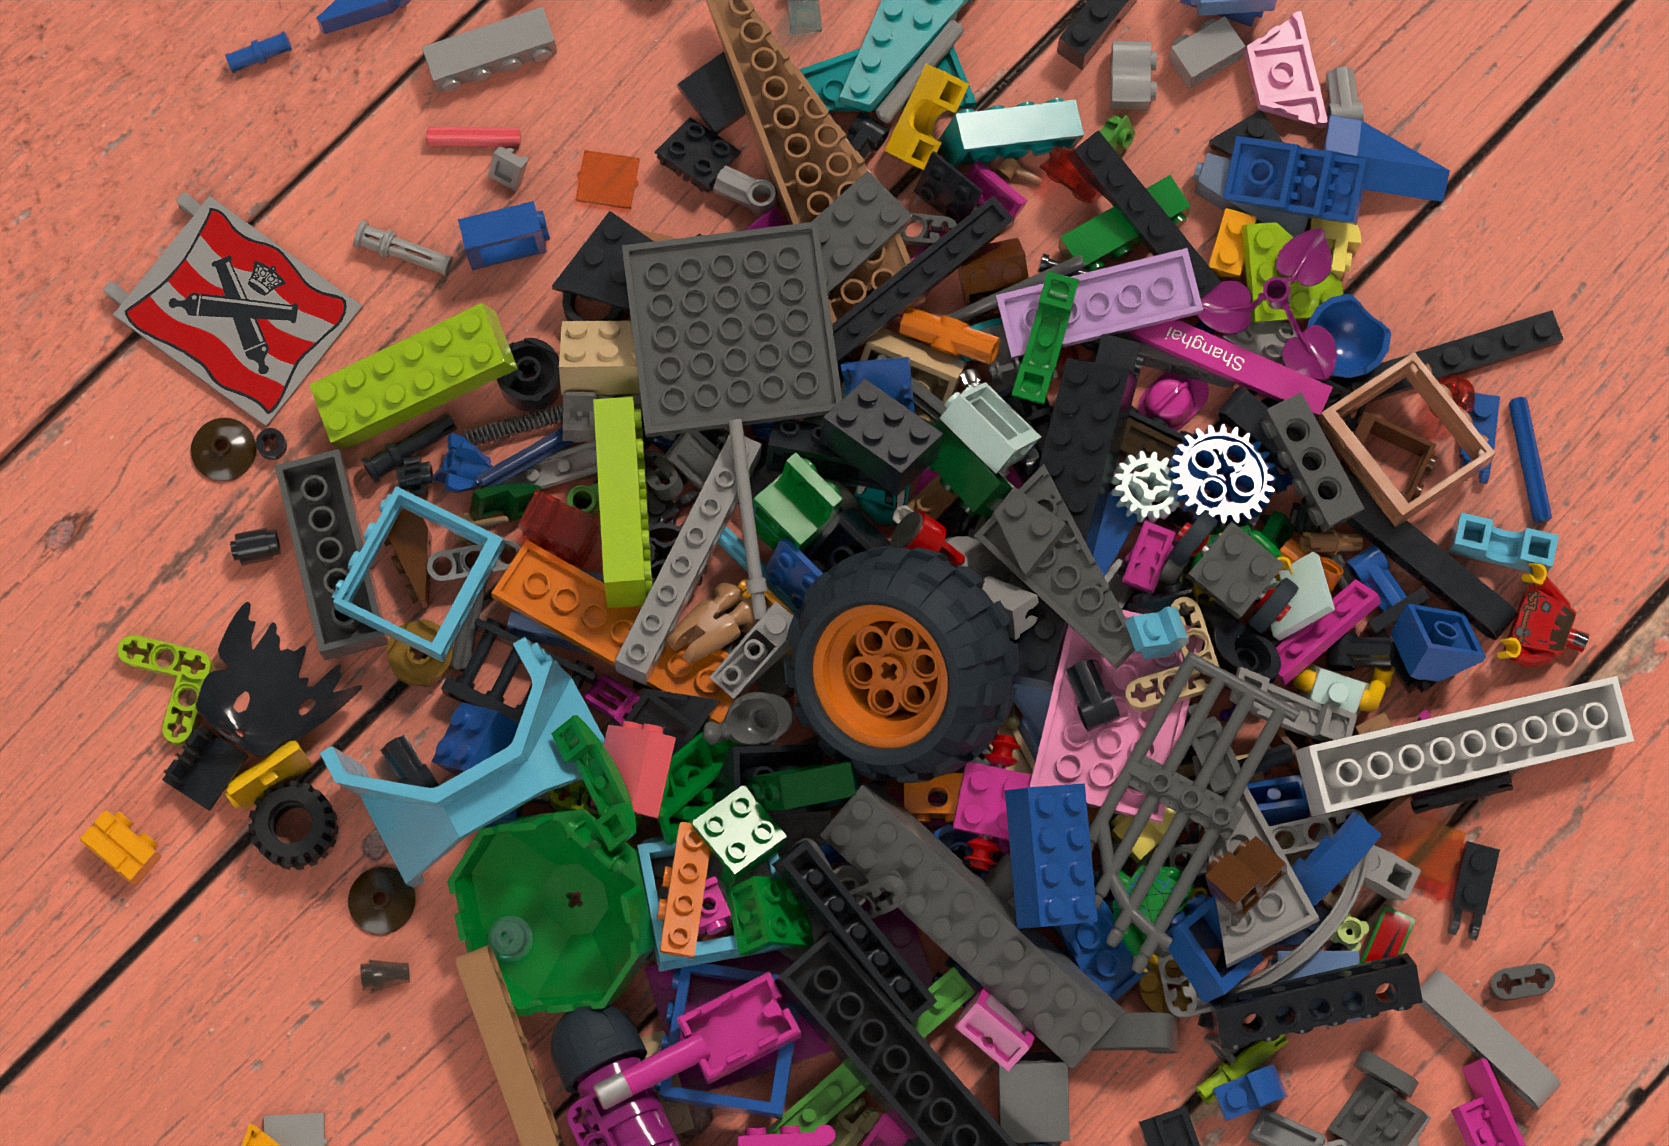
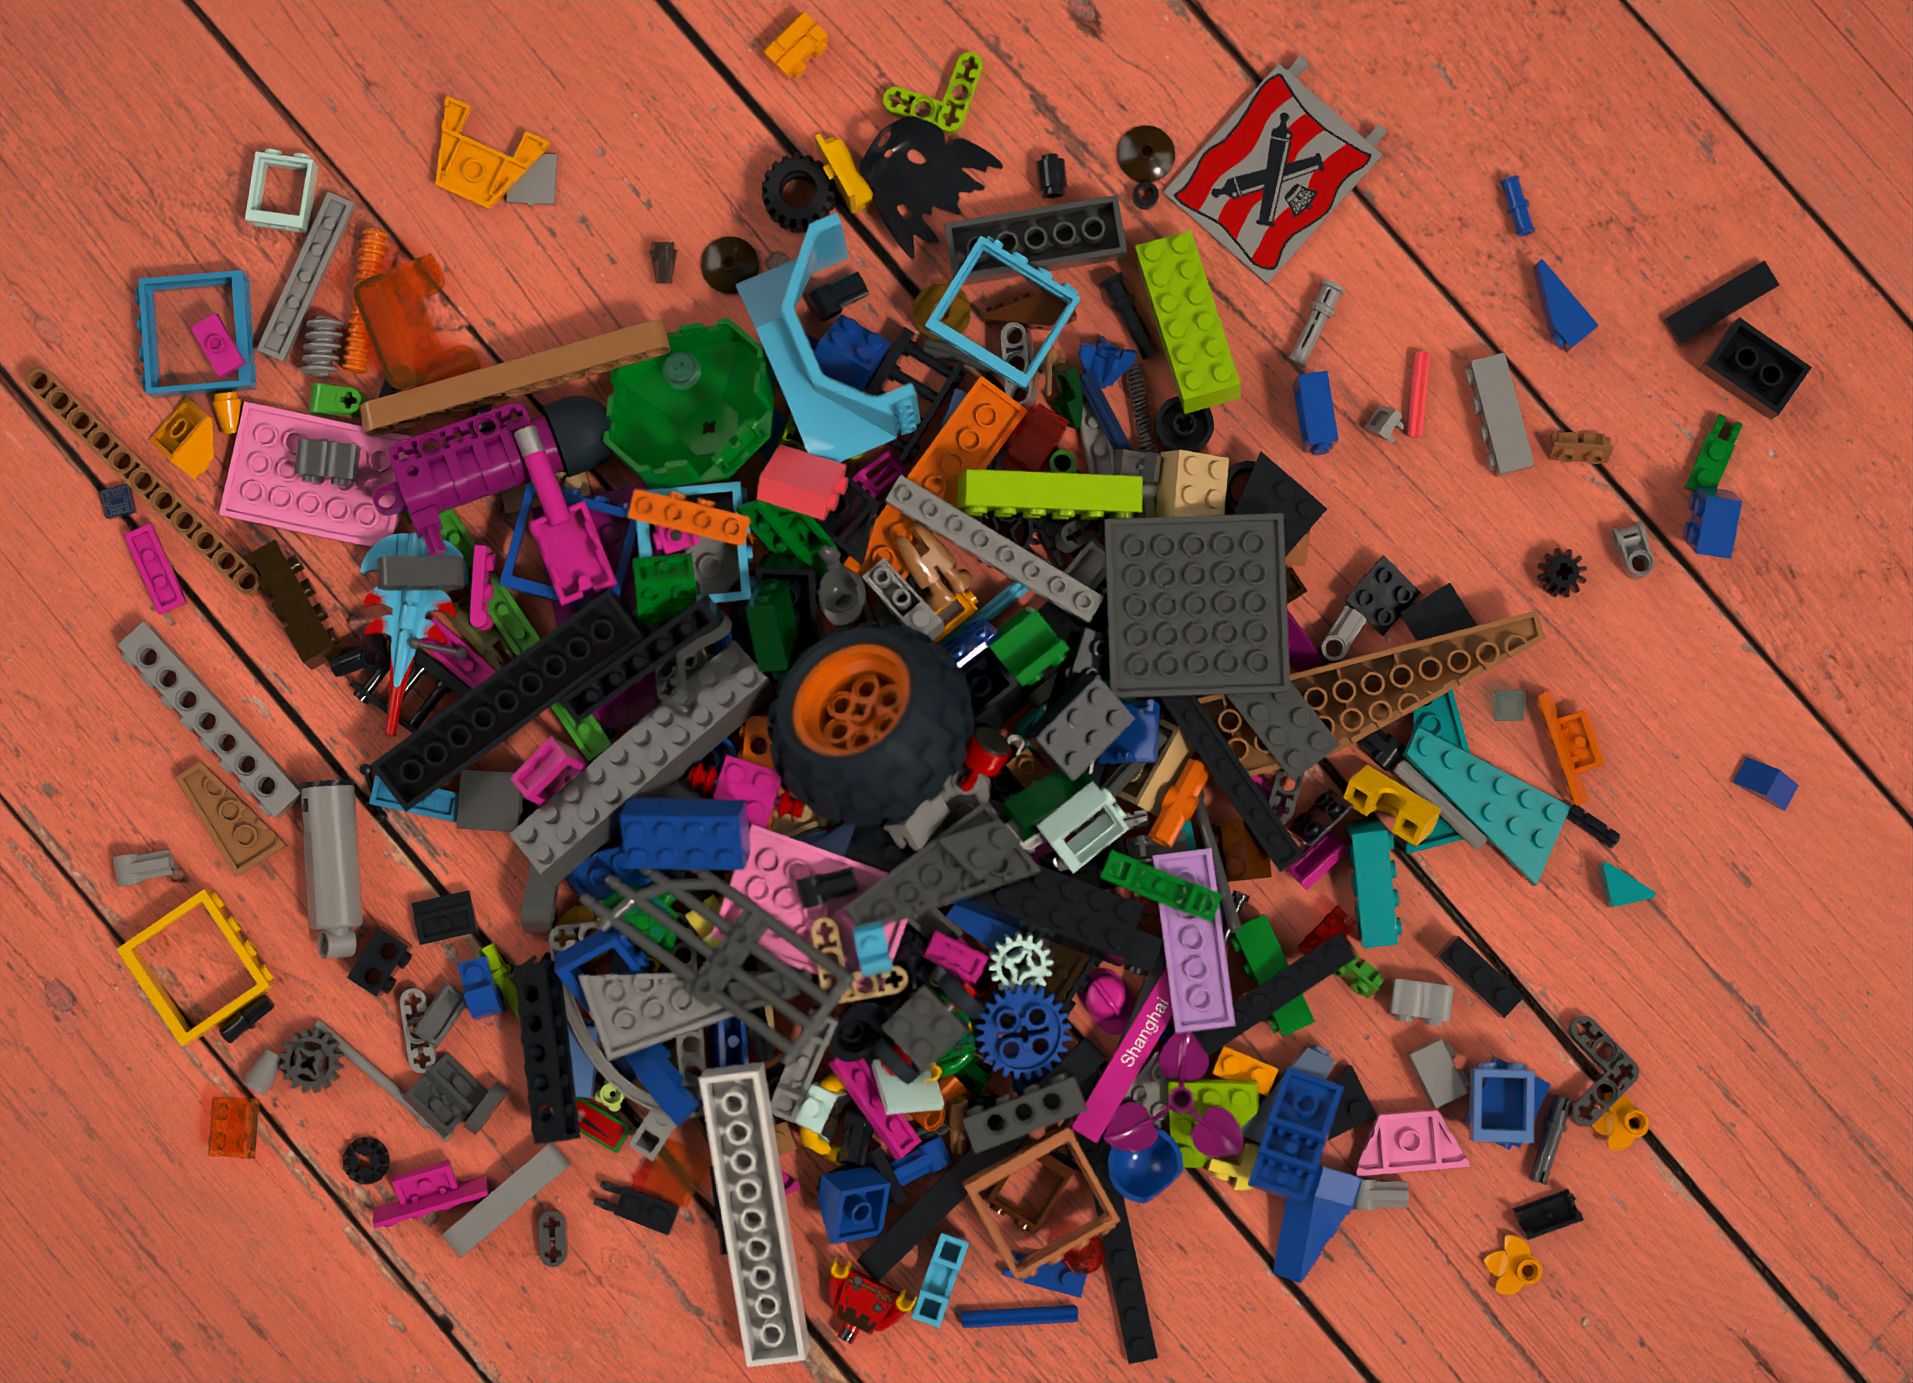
camera: 100 degrees right, 10 degrees up
(204, 767) = (856, 119): black hinge -> none
(415, 475) = (1100, 319): black gear -> none
(602, 778) = (792, 454): green slope -> none
(607, 179) = (1367, 512): clear orange piece -> none
(739, 834) = (735, 567): bracket -> none
(756, 584) = (964, 606): light grey bar -> none
(1011, 166) = (1342, 878): medium nougat hand -> none
(1244, 876) = (647, 999): reddish brown brick -> none

